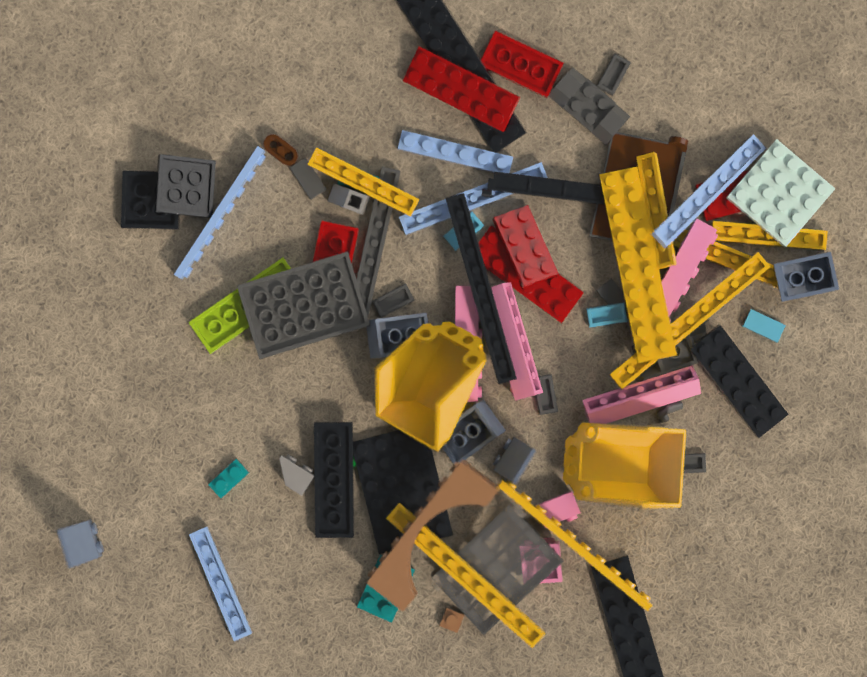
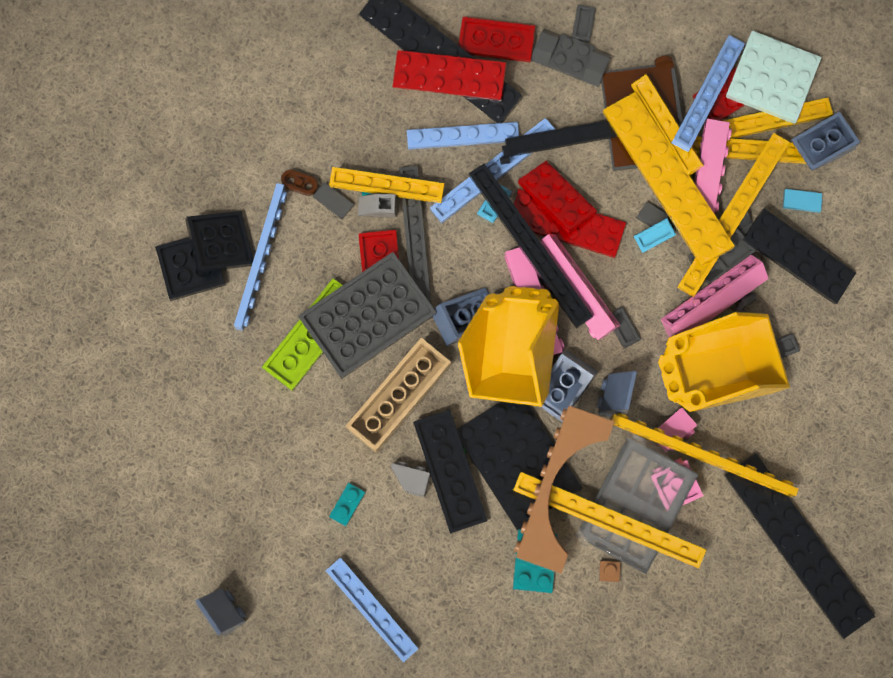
camera: 20 degrees left, 10 degrees down
(308, 392) = (398, 395): none -> tan brick
(393, 300) = (450, 286): dark grey tile -> none

